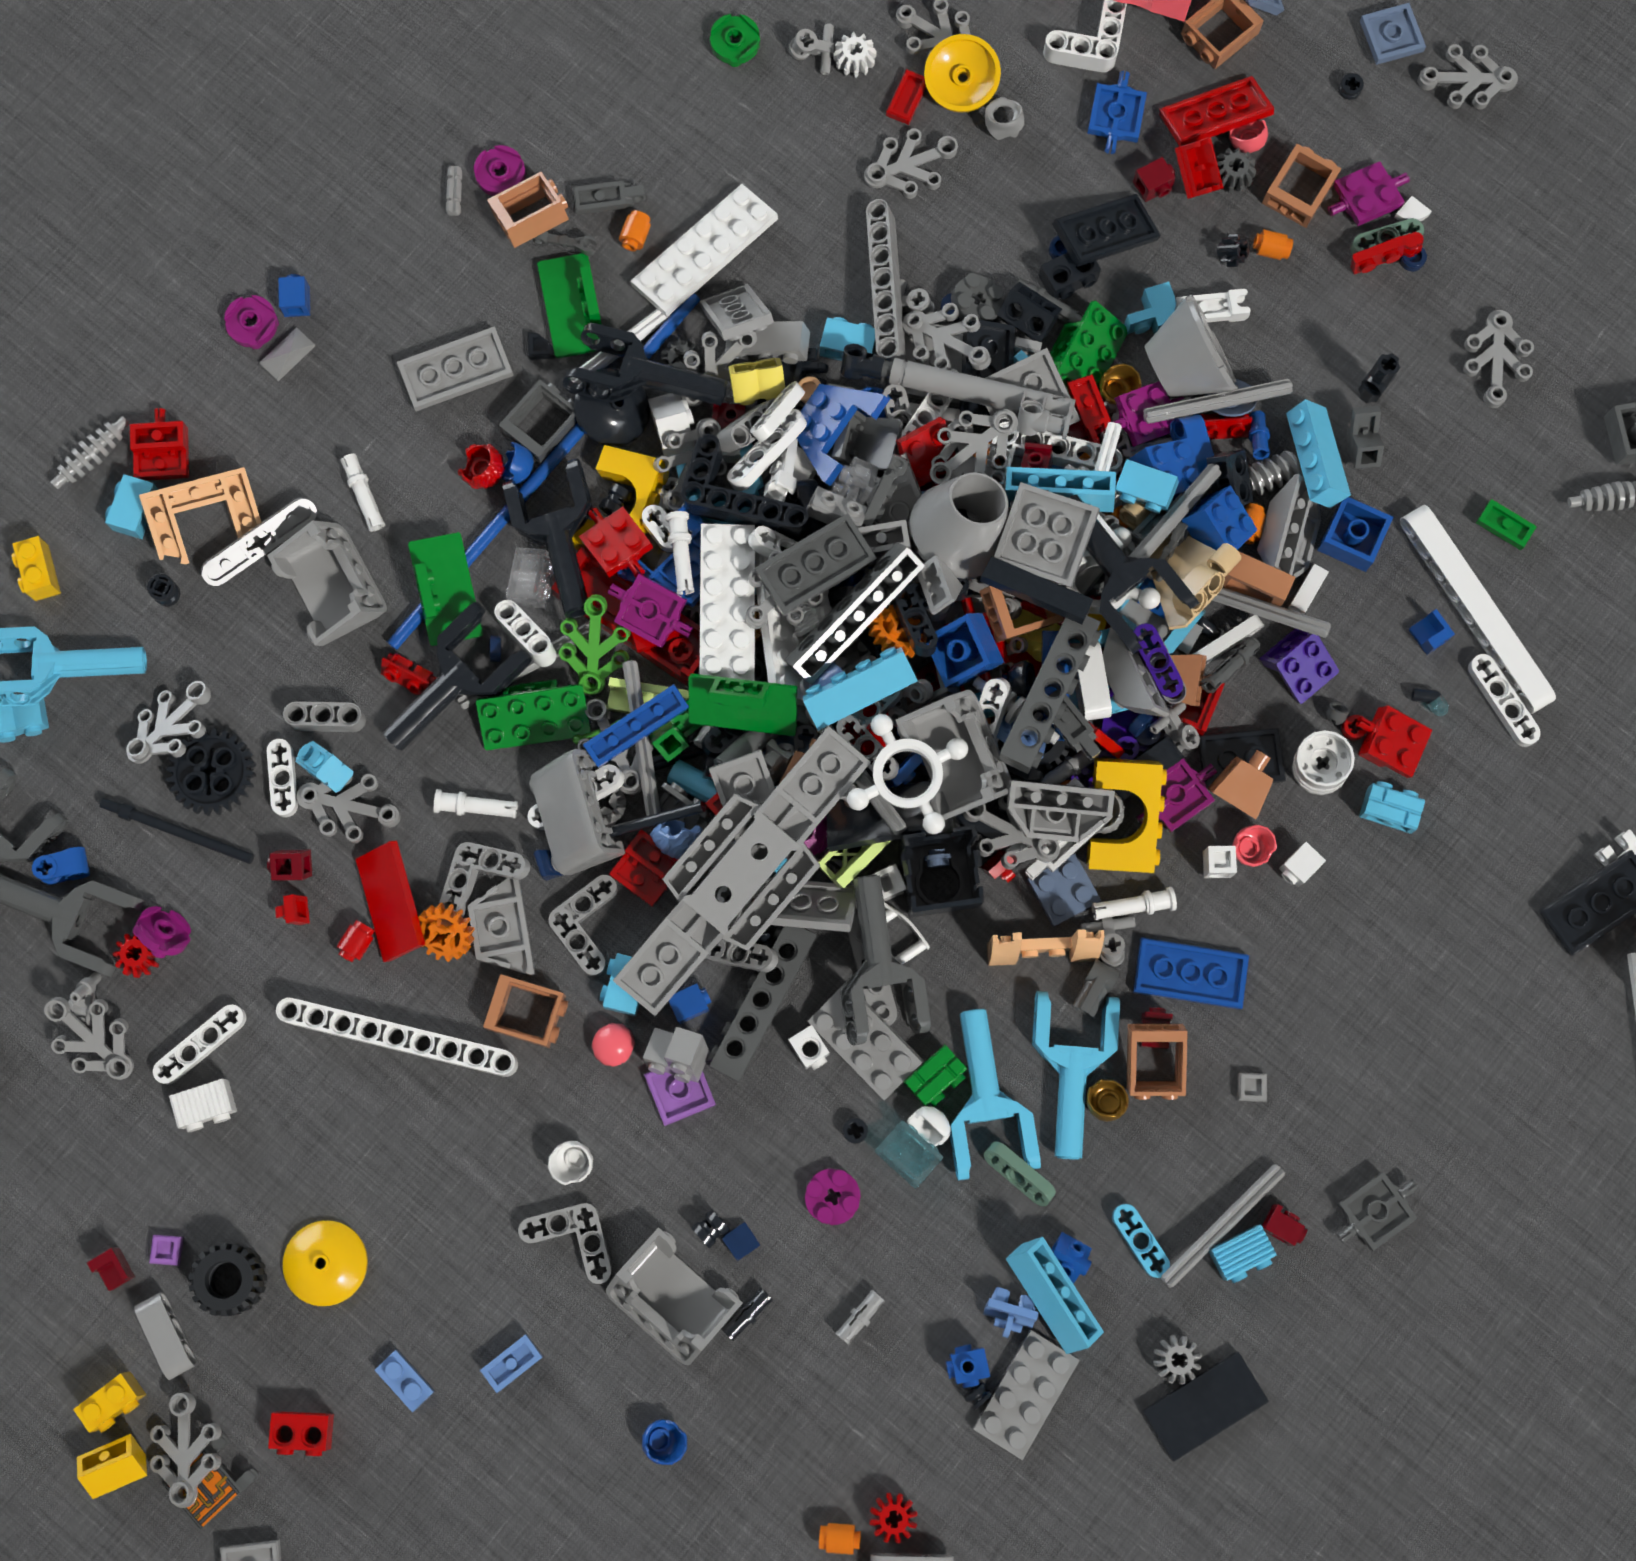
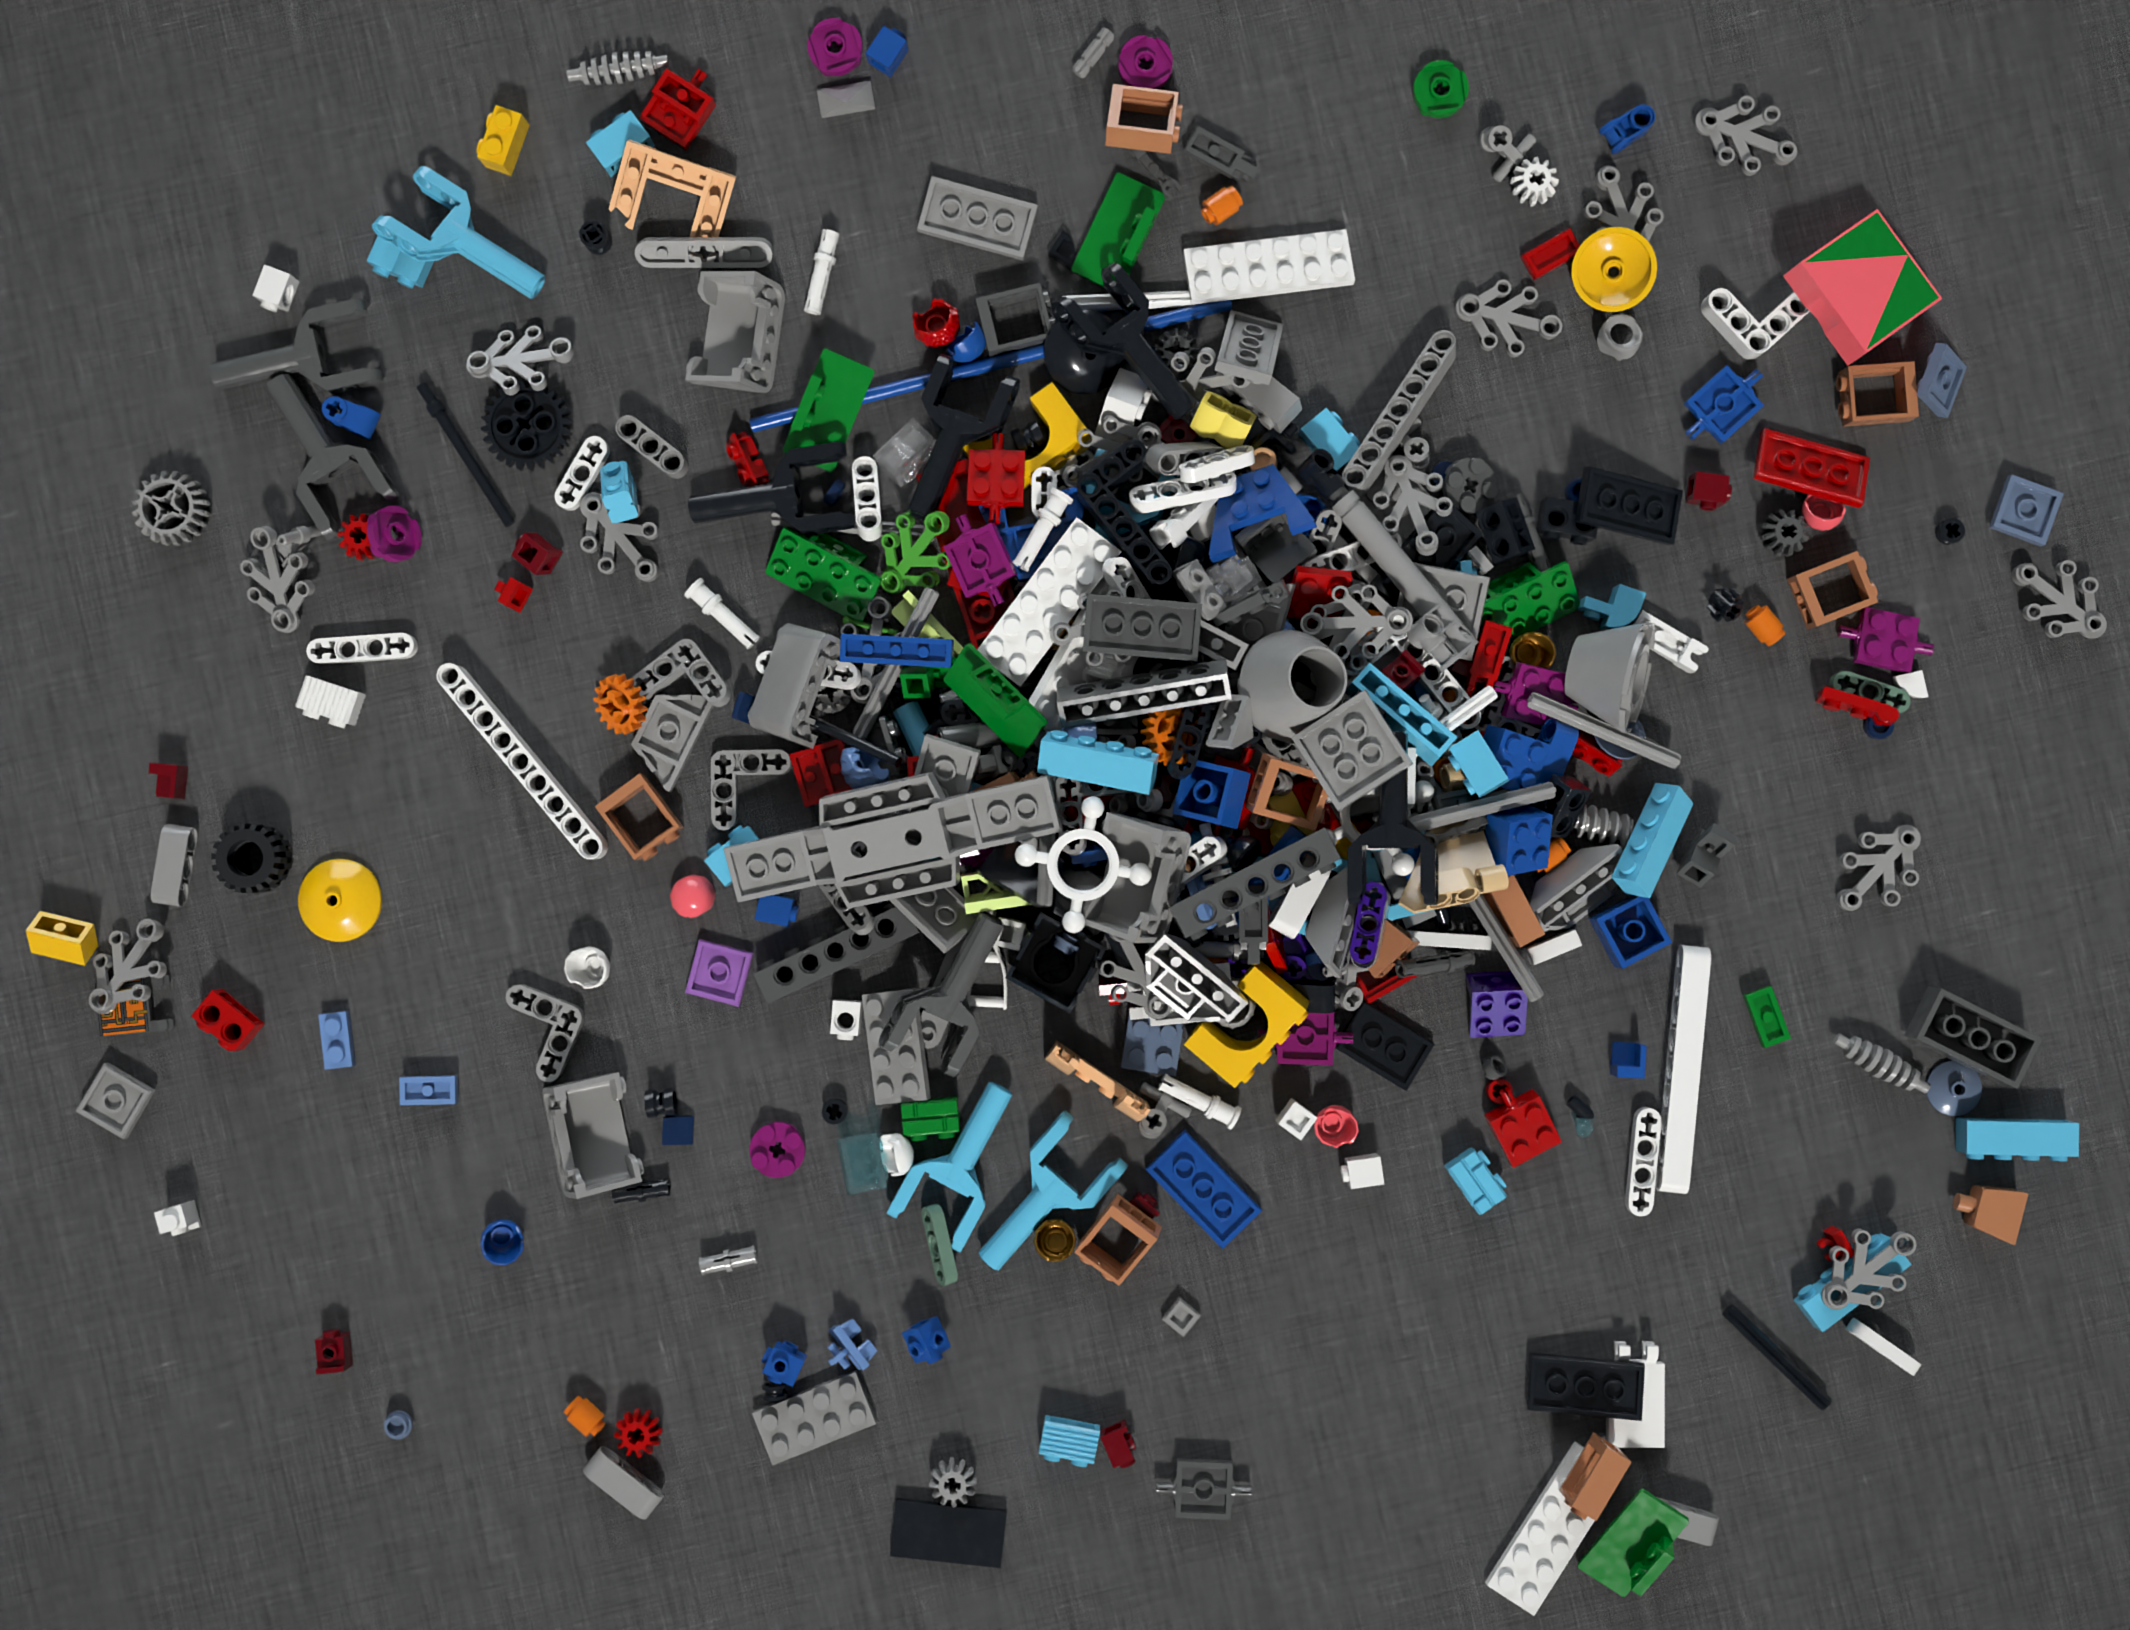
camera: 40 degrees right, 10 degrees up
(110, 1401) = (101, 886): yellow brick -> none
(166, 1250) = (222, 796): medium lavender tile -> none
(355, 941) = (544, 657): red brick -> none
(390, 901) = (595, 645): red tile -> none
(677, 1053) = (734, 944): light grey brick -> none
(1036, 590) = (1307, 792): black tile -> none
(1054, 1295) = (891, 1362): medium azure brick -> none
(1097, 984) = (1121, 1141): dark grey piece -> none
(1134, 1219) = (1002, 1389): medium azure beam -> none
(1199, 168) = (1753, 510): red hinge -> none
(1223, 1225) = (1070, 1407): light grey axle -> none
(1244, 784) = (1366, 1070): nougat torso -> none
(1259, 435) = (1617, 784): blue pin -> none
(1319, 748) = (1459, 1112): white wheel -> none
(1379, 378) = (1757, 814): black piece -> none

